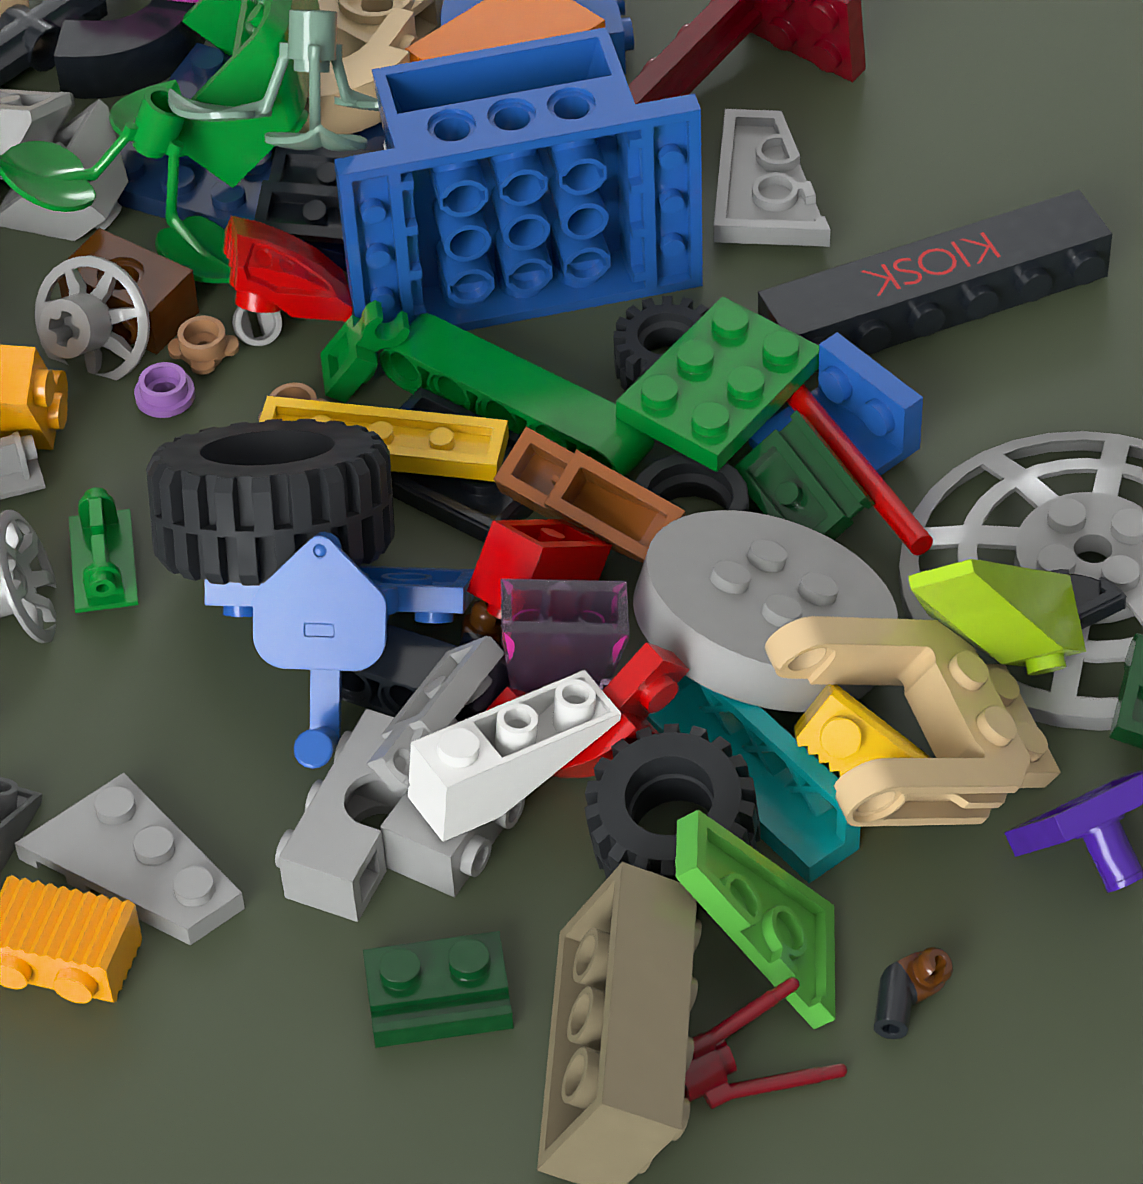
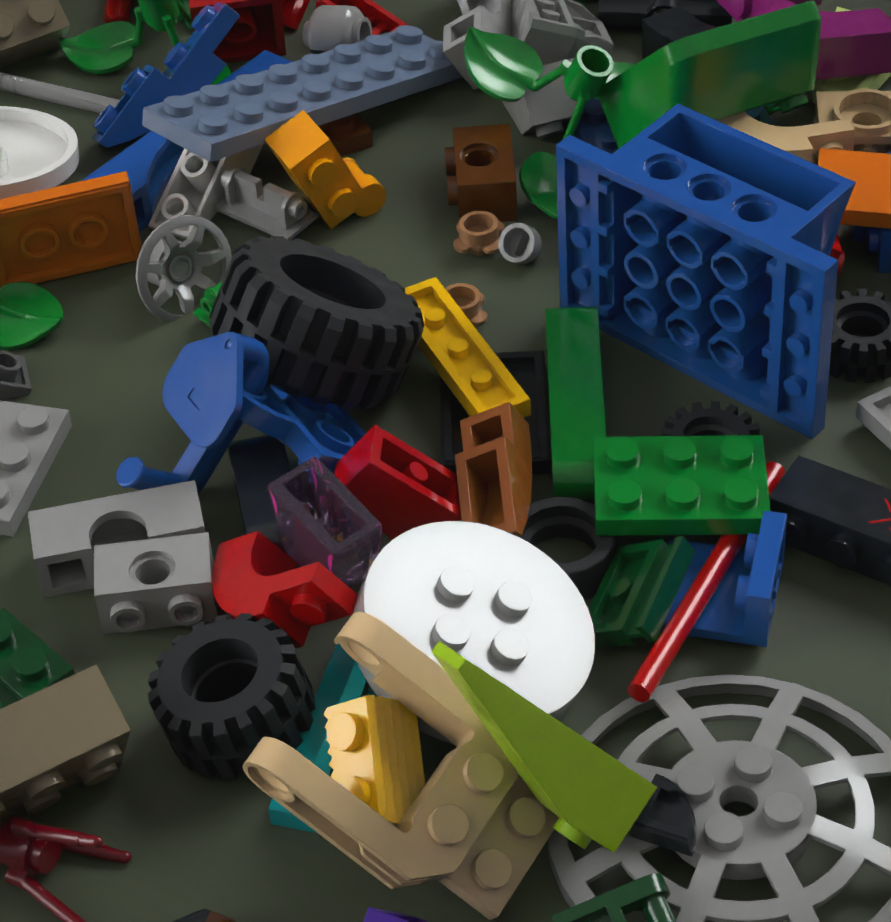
camera: 55 degrees right, 5 degrees down
(84, 321) = (421, 164): light grey wheel -> none
(164, 390) = (419, 240): medium lavender plate -> none
(283, 273) = (532, 212): red slope -> none
(312, 47) = (668, 71): sand green plant -> none
(352, 352) = (531, 302): green plate -> none
(452, 683) = (193, 509): light grey hinge -> none
(505, 753) = (179, 558): white slope -> none
(763, 910) = (167, 793): bright green wing -> none

